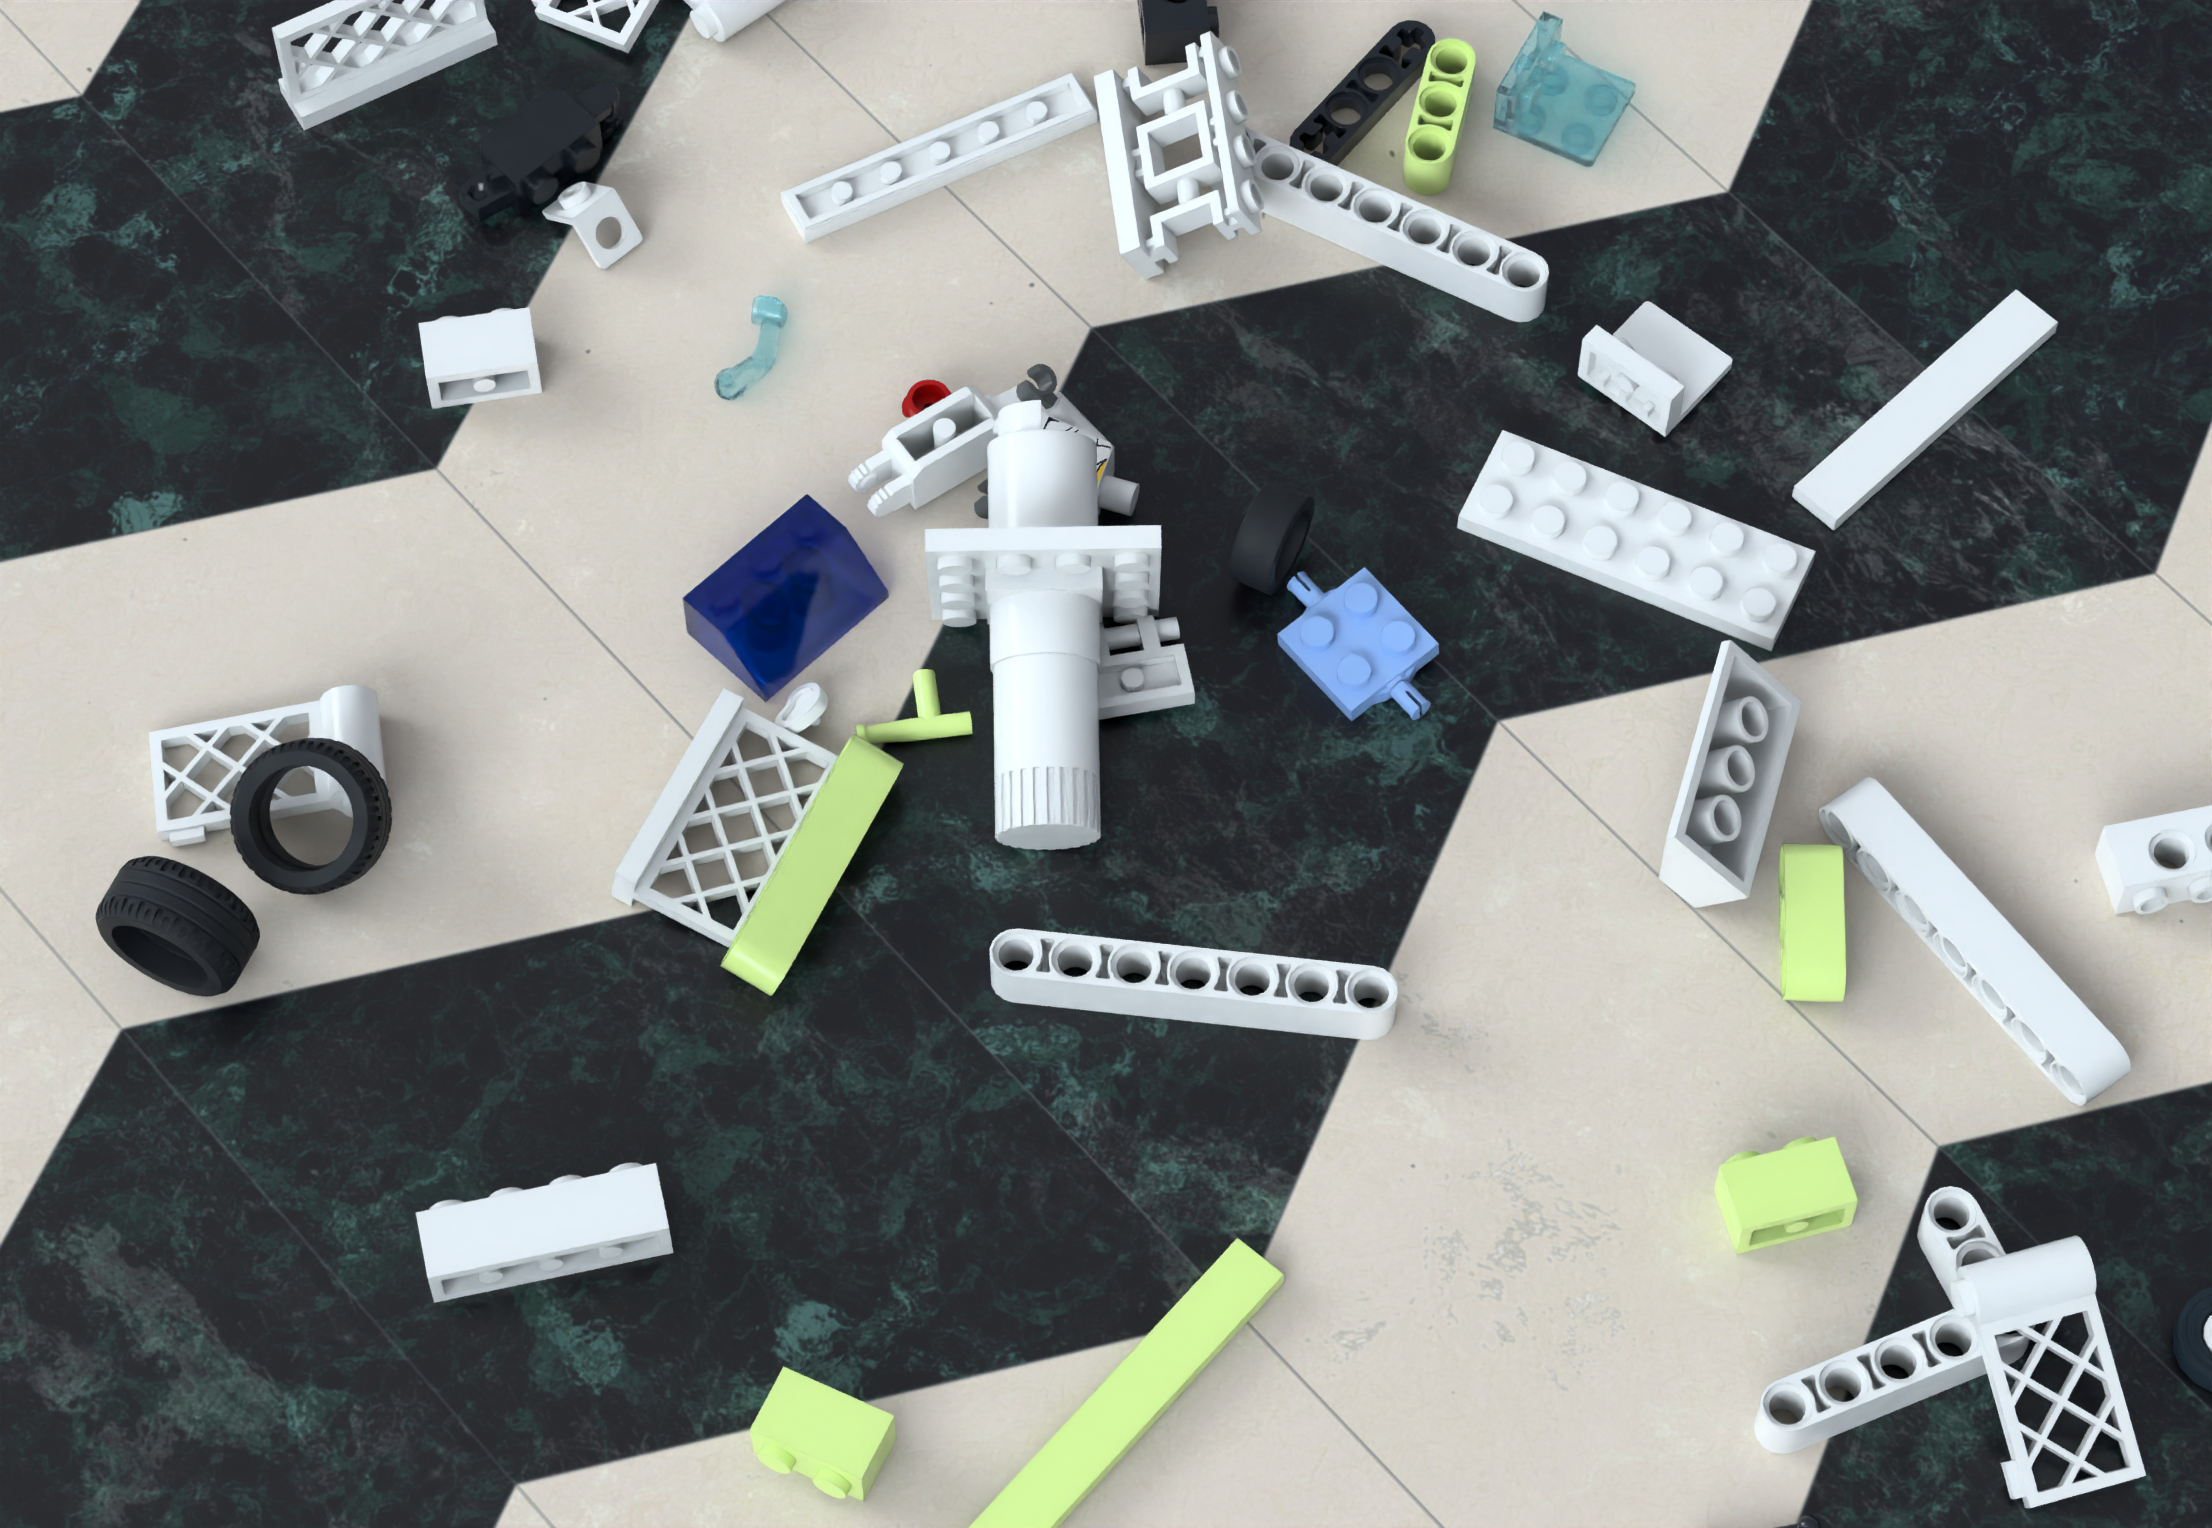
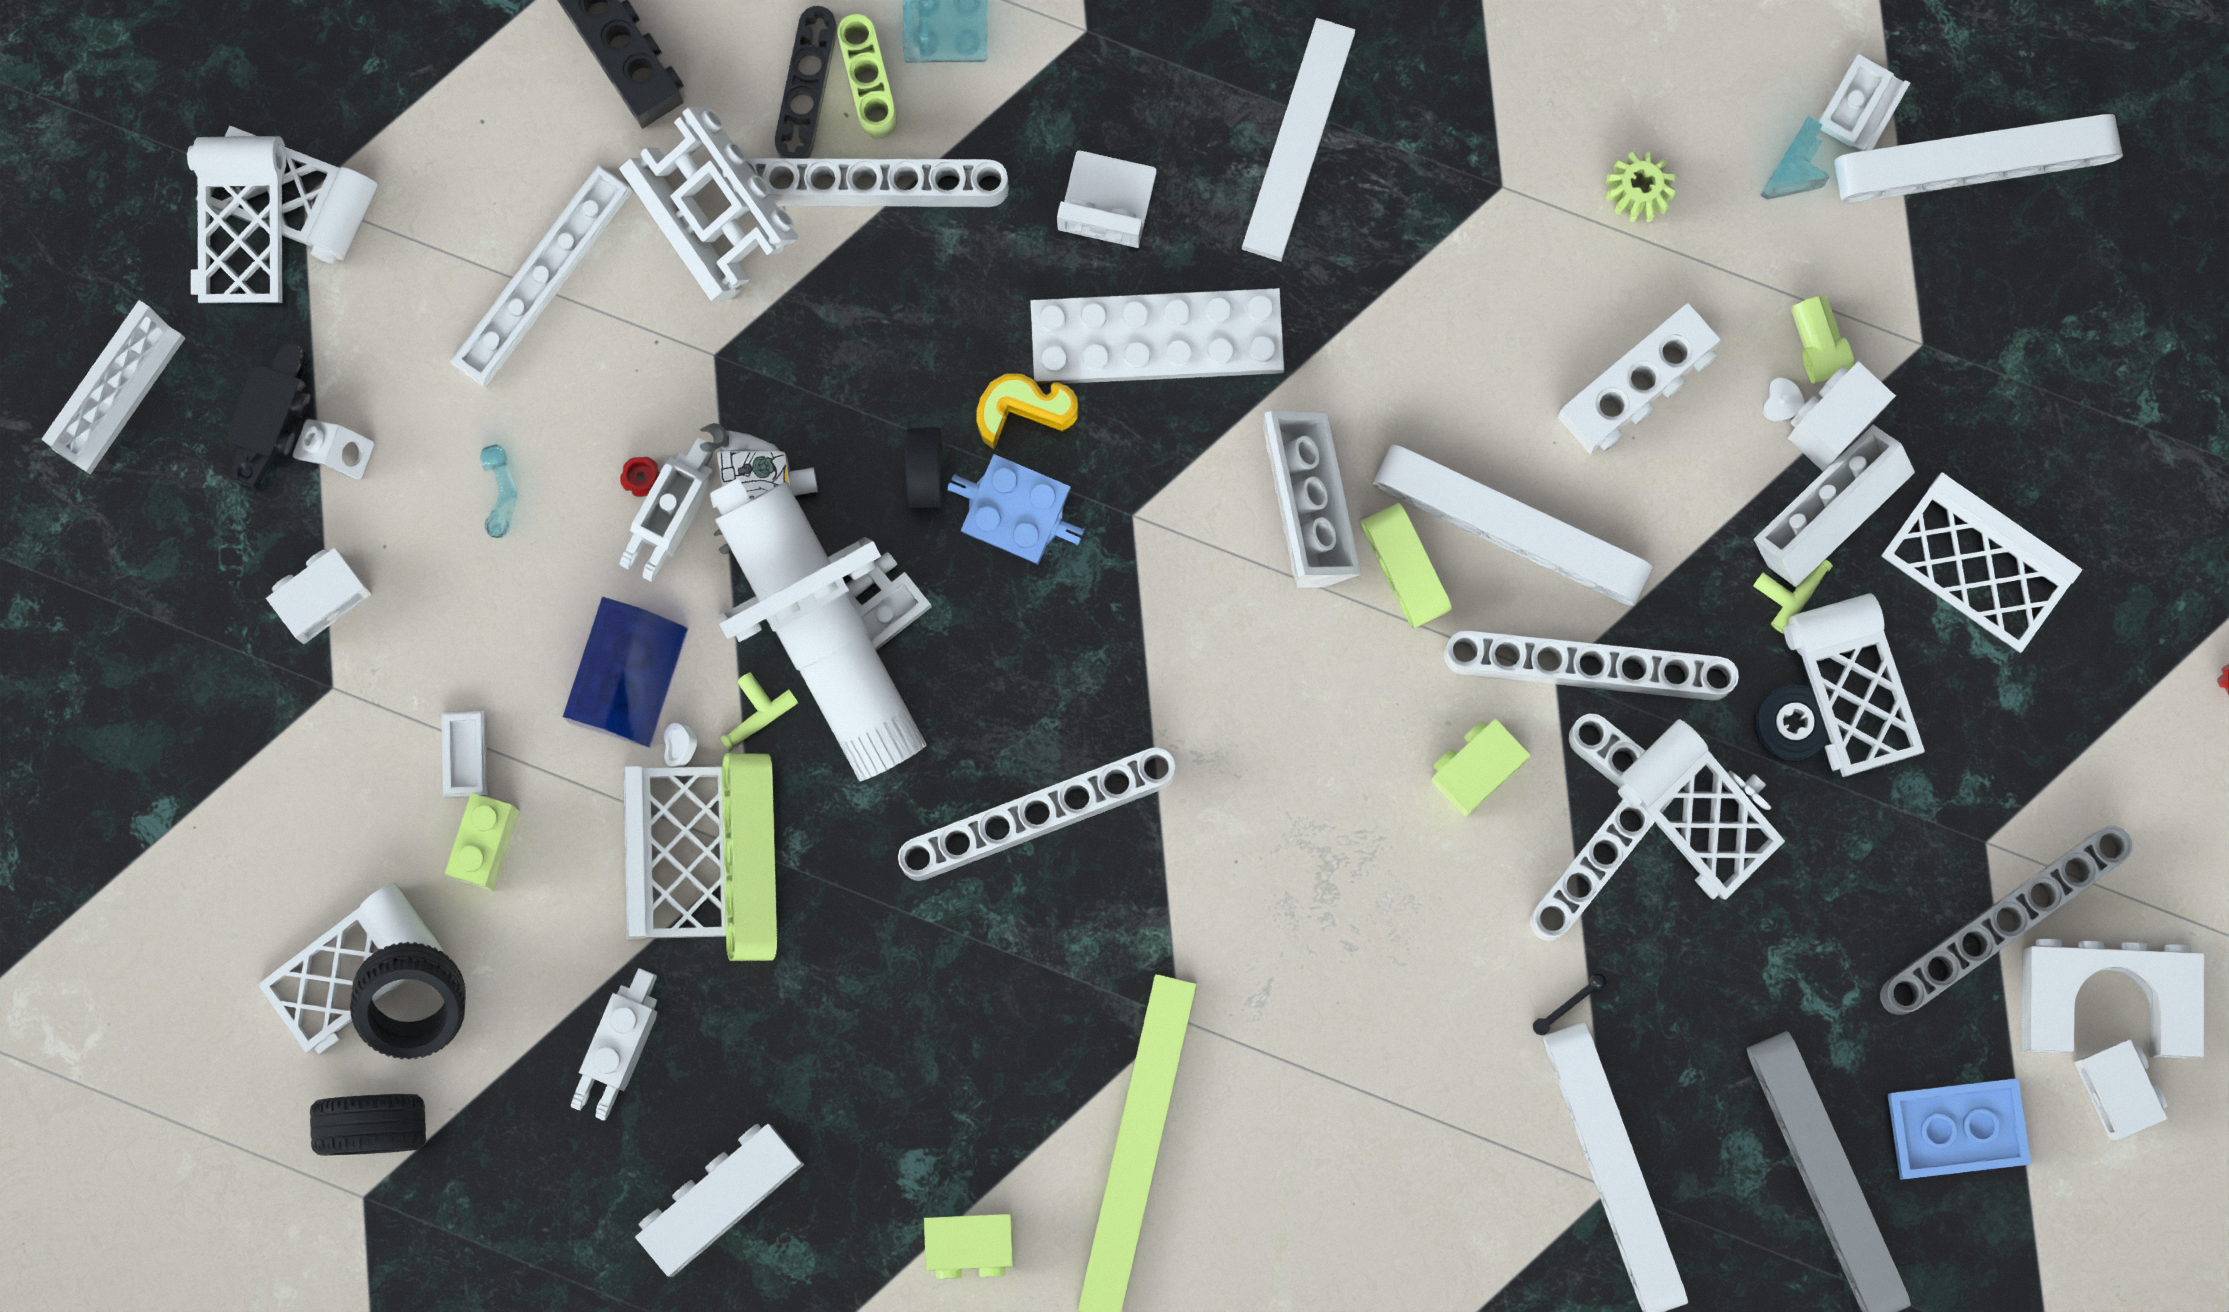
camera: 25 degrees left, 20 degrees up
(505, 698) = (482, 841): none -> yellowish green brick
(529, 993) = (618, 1042): none -> white hinge
(543, 605) = (464, 754): none -> white tile
(1435, 527) = (1023, 397): none -> yellow animal
(2003, 1169) = (1610, 658): none -> white beam
(2133, 1384) = (1751, 788): none -> white plant

